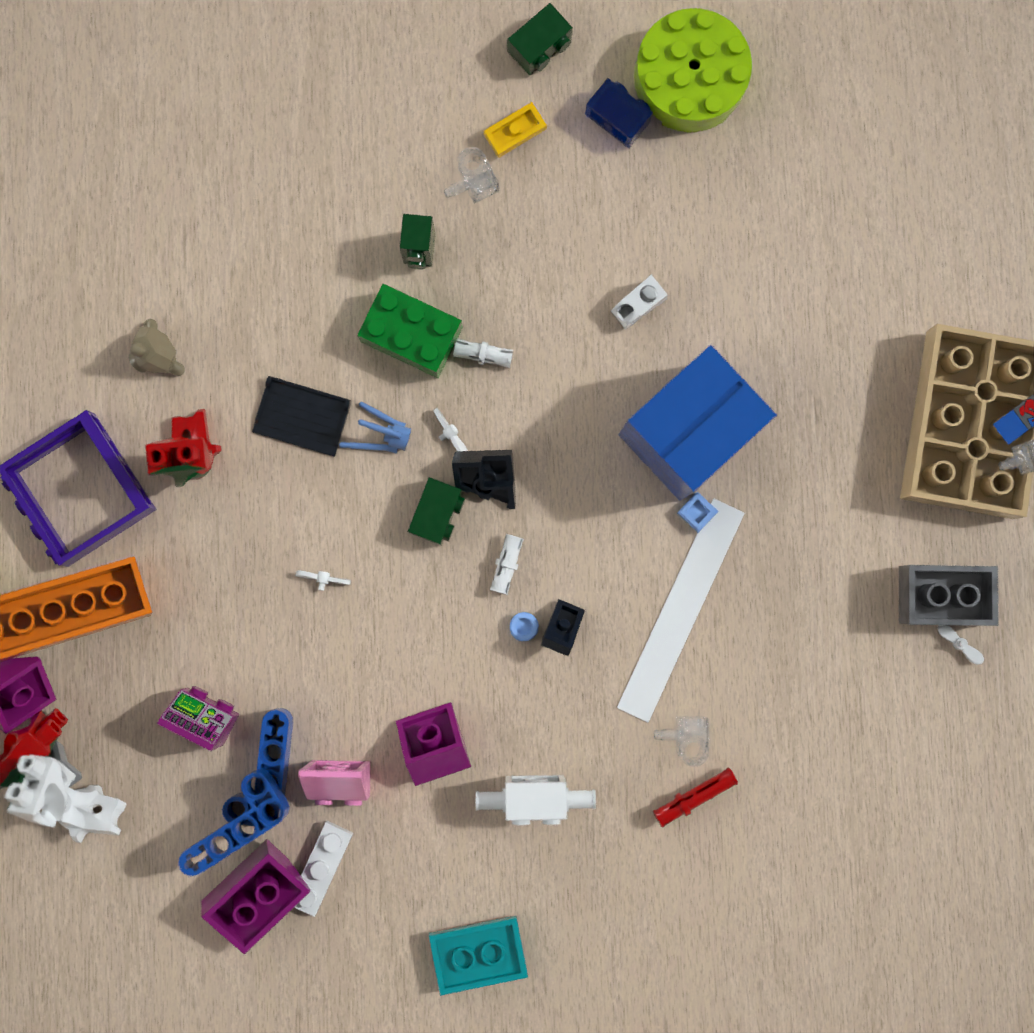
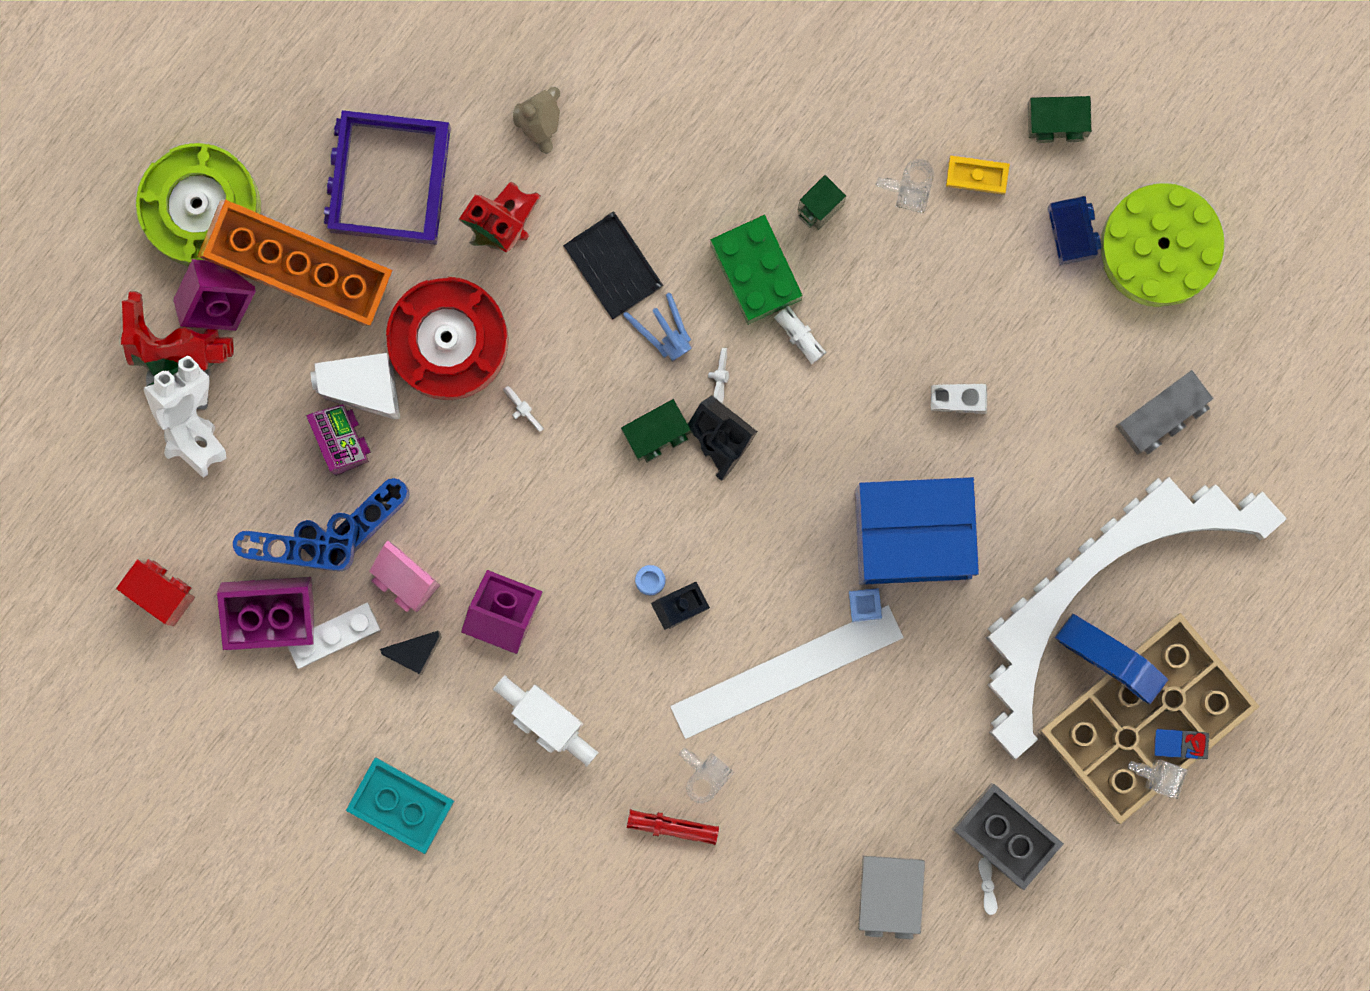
camera: 50 degrees right, 0 degrees up
(155, 954) = (155, 592): none -> red brick
(180, 661) = (359, 383): none -> white slope
(192, 565) = (442, 309): none -> red piece
(393, 832) = (414, 652): none -> black slope
(506, 564) = (677, 519): white pin -> none
(797, 190) = (1165, 413): none -> flat silver brick
(832, 430) = (1026, 632): none -> white arch
(899, 711) = (891, 896): none -> light grey brick
(928, 395) = (1112, 658): none -> blue beam

